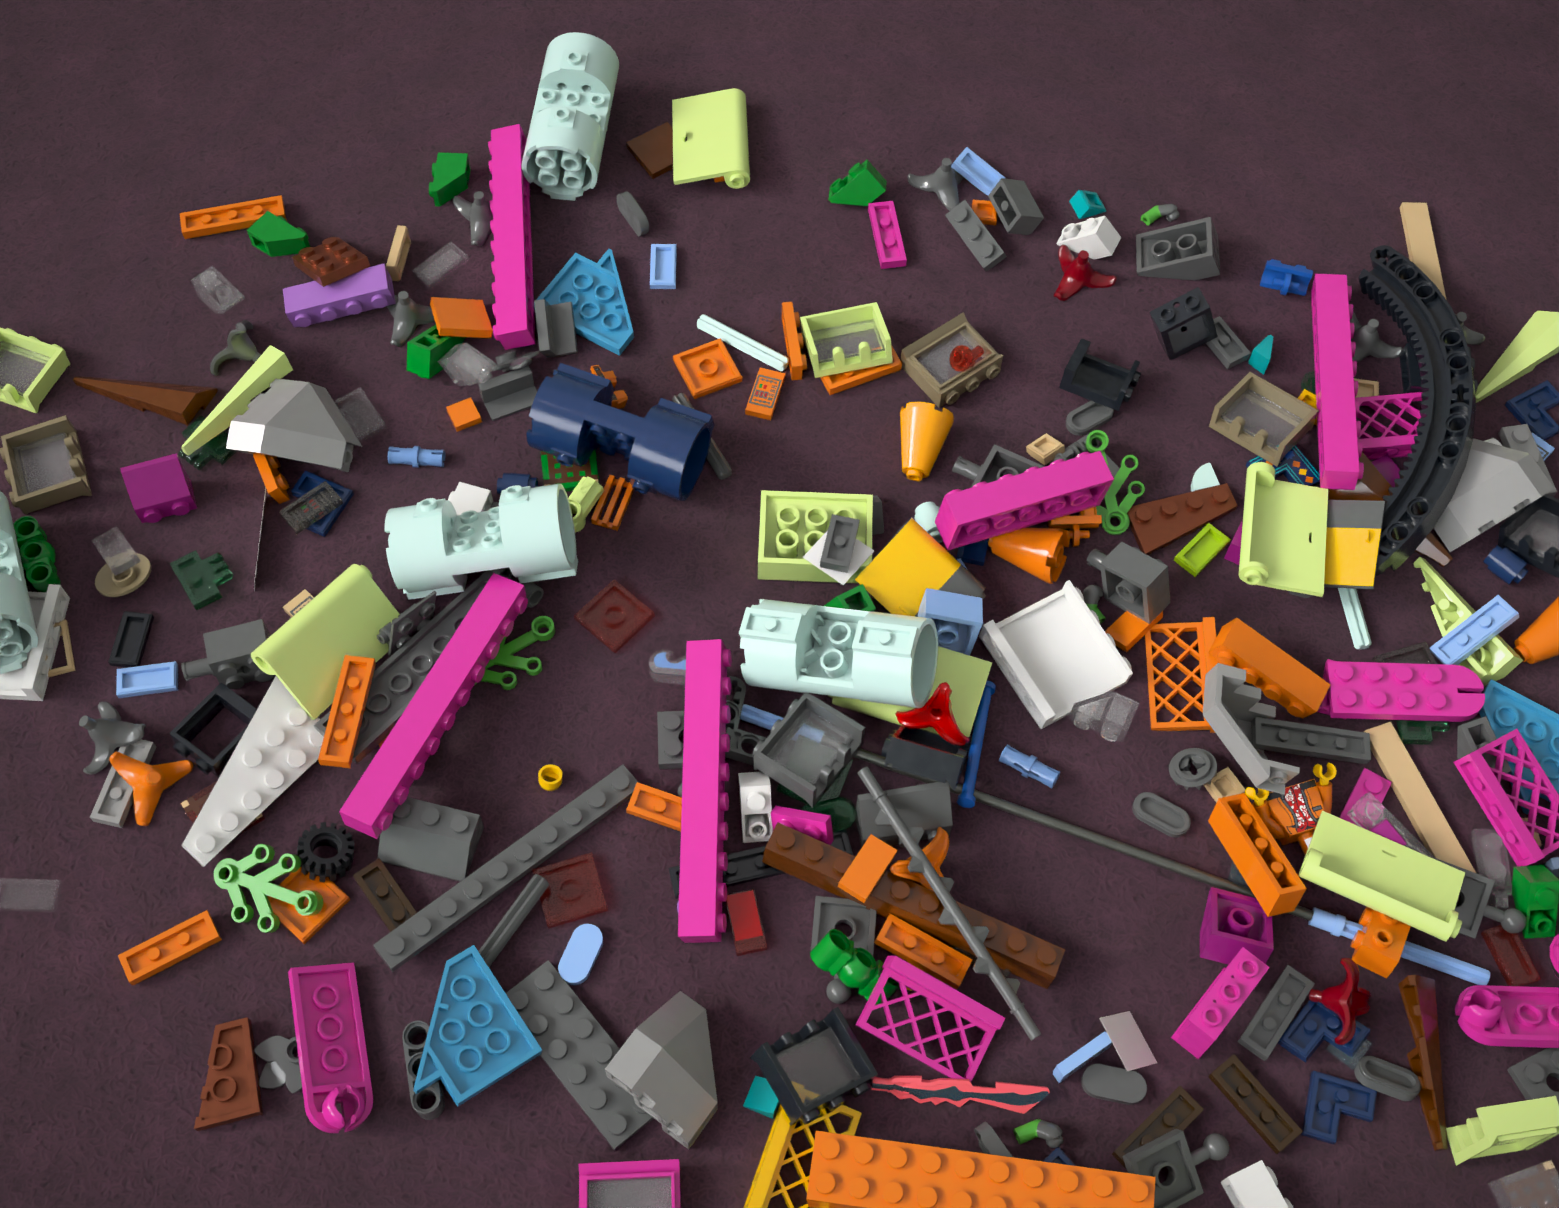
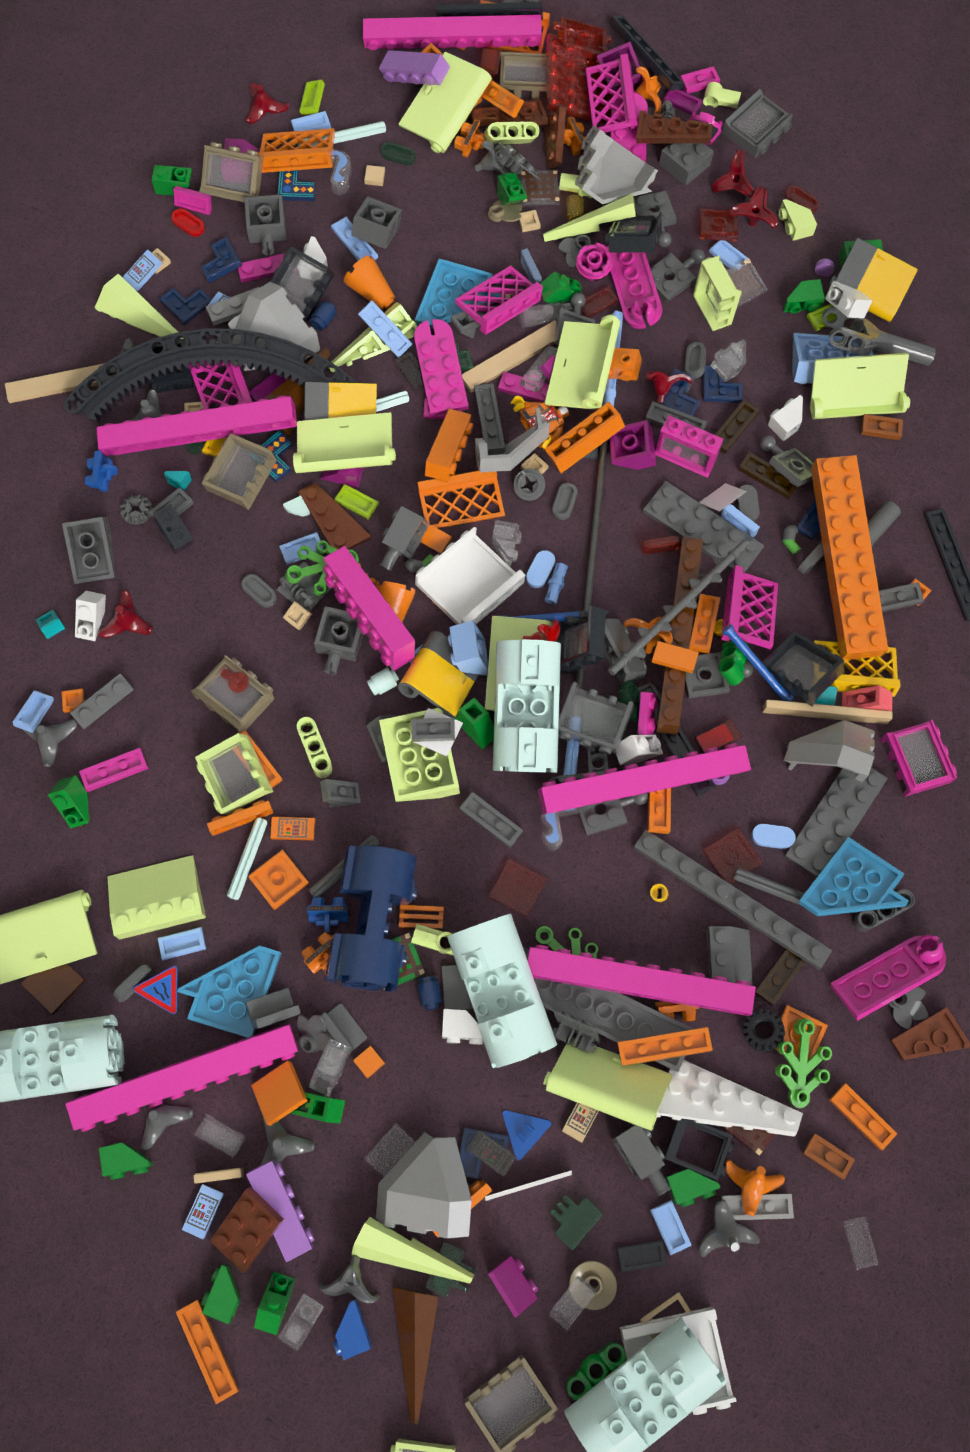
camera: 105 degrees left, 10 degrees up
(141, 887) = (828, 1156): none -> dark orange plate
(176, 703) = (688, 1185): none -> green slope
(188, 339) = (352, 1333): none -> blue slope
(251, 277) = (274, 1303): none -> green slope
(323, 553) = (524, 1131): none -> blue piece
(369, 237) = (203, 1211): none -> light blue tile
(416, 456) = (419, 1086): medium blue pin -> none
(615, 236) = (161, 989): none -> piece
(639, 400) = (328, 914): none -> blue hips
(710, 604) = (491, 820): none -> dark grey plate
(723, 248) = (155, 897): none -> yellowish green slope
(739, 1093) = (827, 712): none -> tan tile
(740, 1159) = (868, 698): none -> coral slope
(793, 443) = (339, 793): none -> dark grey slope
(839, 990) = (729, 631): none -> blue bar
(870, 423) = (309, 739): none -> yellowish green beam
(922, 437) = (314, 699): light orange cone -> none
(1008, 1096) = (782, 587): coral sword -> none
(1015, 206) = (68, 673): dark grey brick -> none
(1057, 753) = (540, 569): none -> light blue tile
(1063, 923) = (660, 545): none -> clear red tile
(1071, 1006) = (693, 520): none -> dark grey plate
(1099, 379) = (226, 586): black panel -> none
(1144, 473) = (291, 548): none -> light blue tile
(1158, 211) = (47, 568): arm -> none
(1231, 317) = (135, 517): none -> dark grey gear
(1376, 1127) = (730, 361): none -> clear slope
(1425, 1059) = (678, 341): reddish brown wedge -> none

